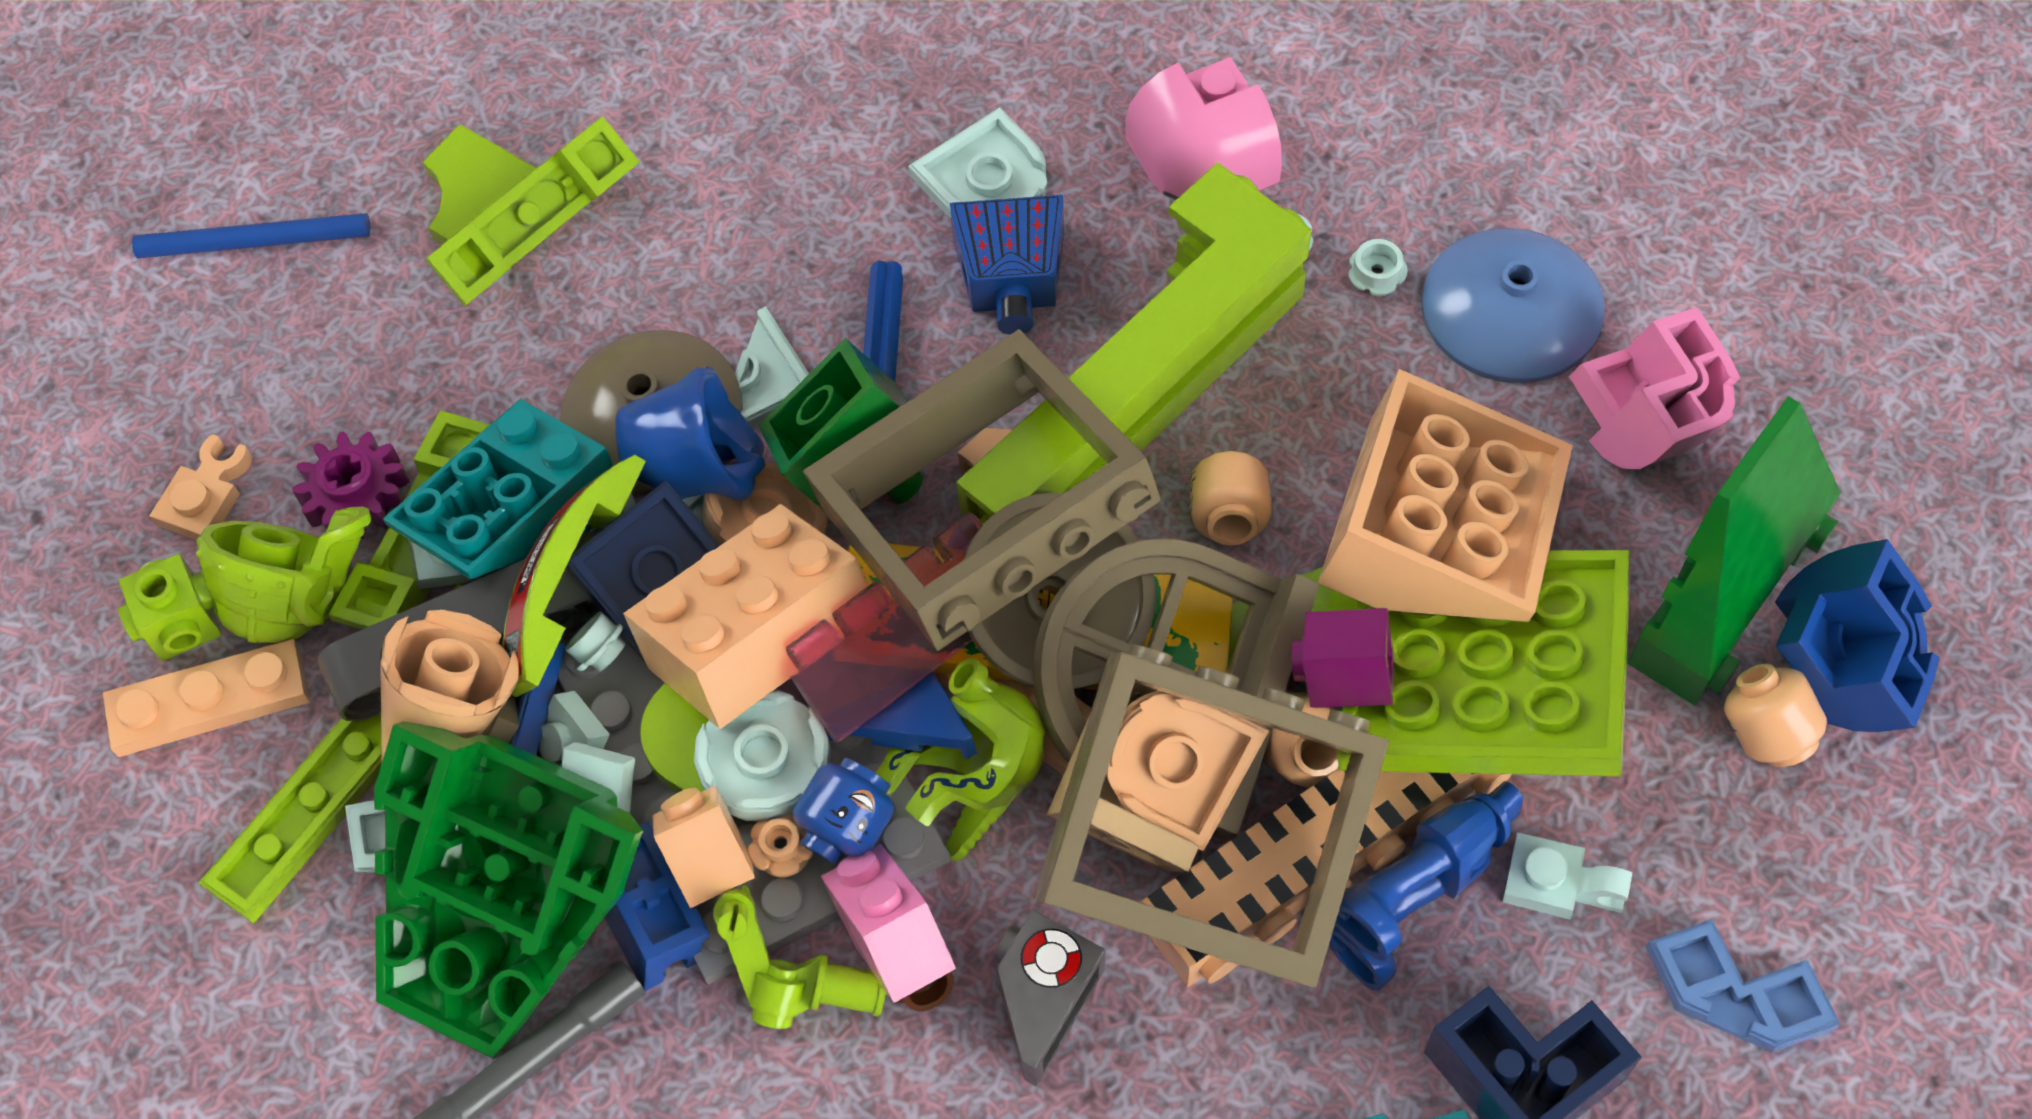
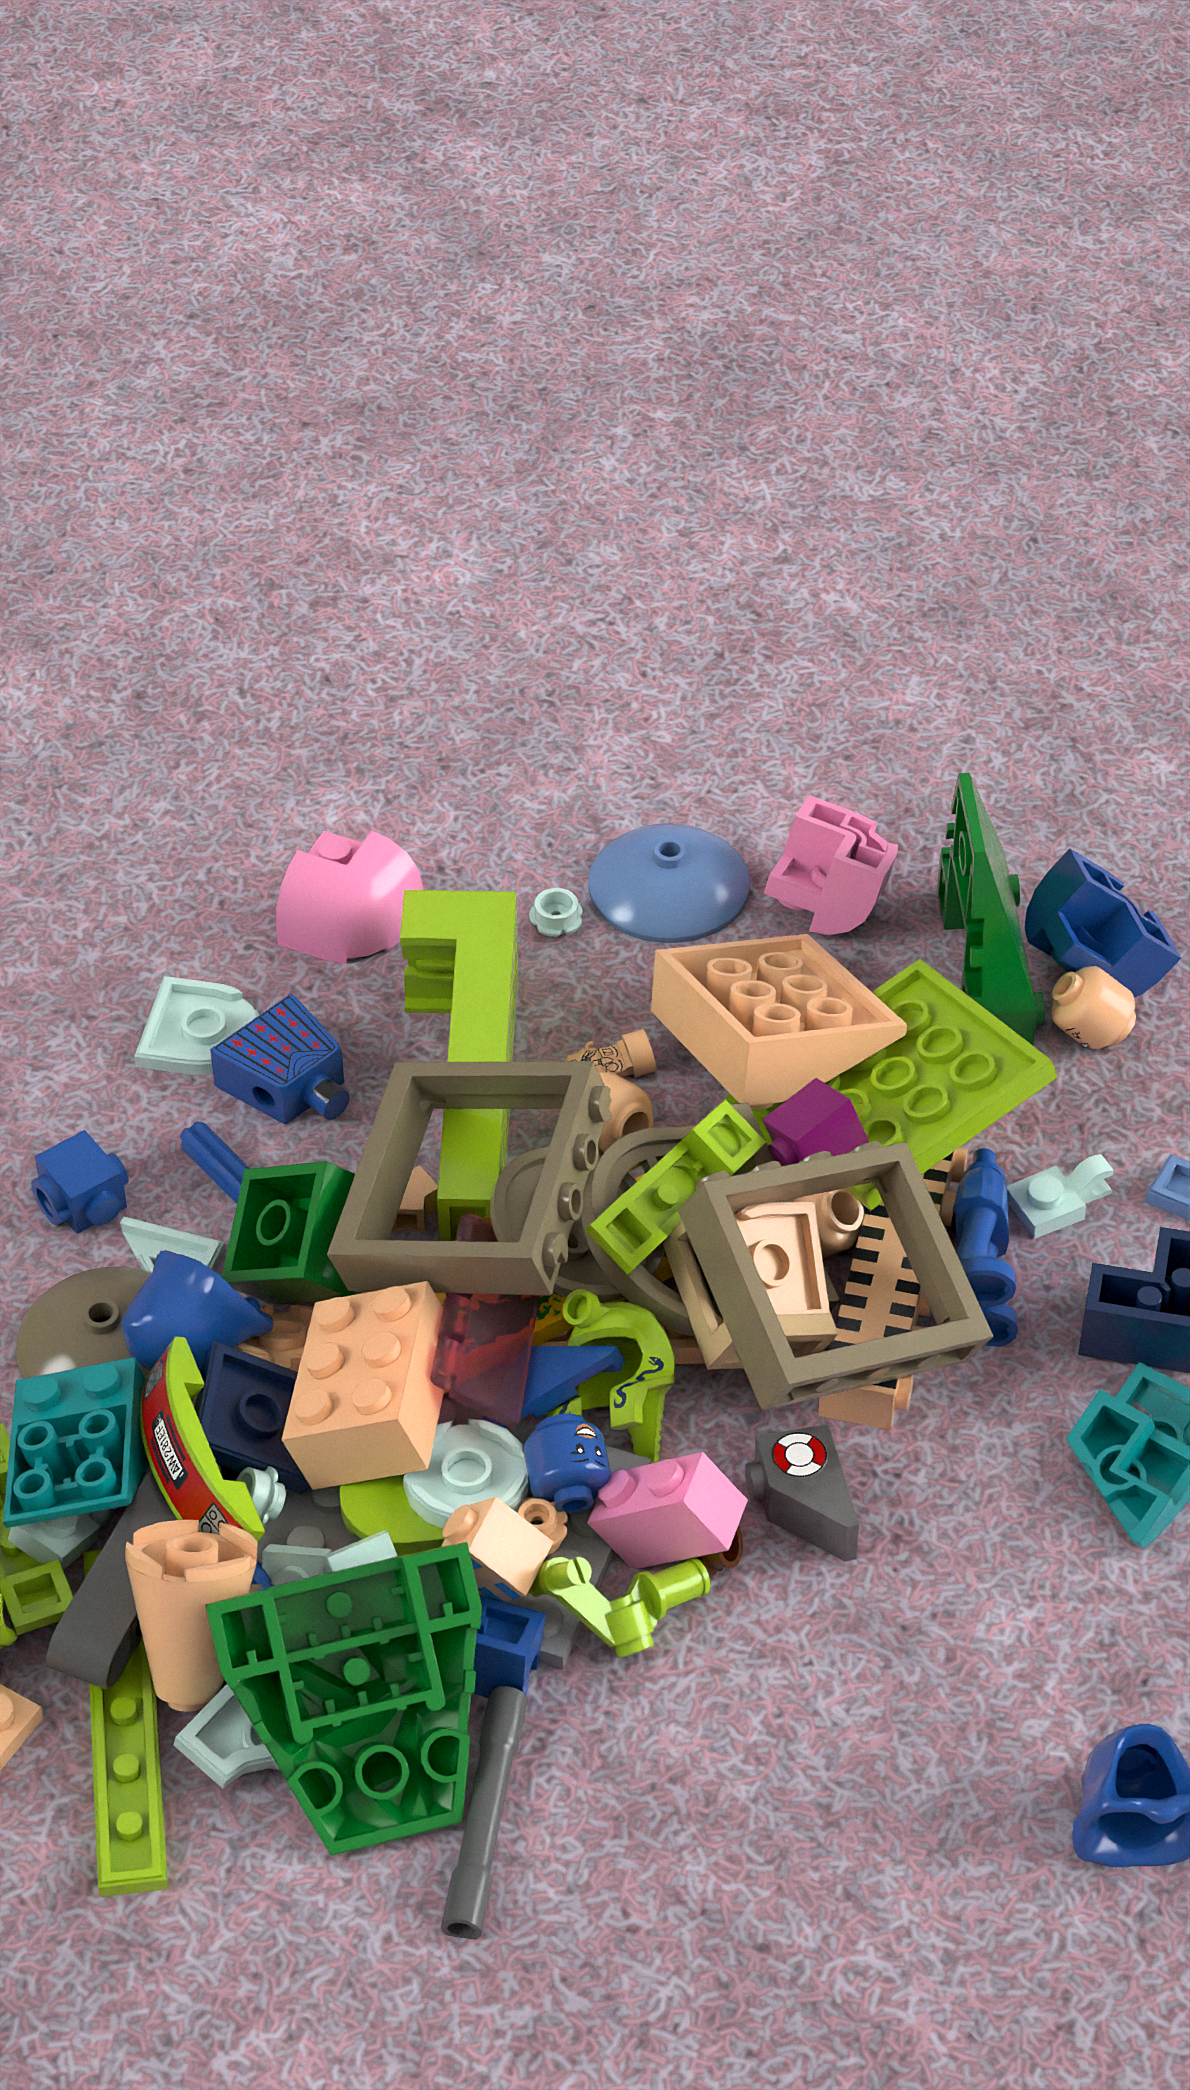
camera: 45 degrees left, 15 degrees down
(753, 253) = (79, 1183): none -> blue brick
(1166, 619) = (651, 1206): none -> lime slope
(1265, 439) = (627, 1057): none -> light nougat piece

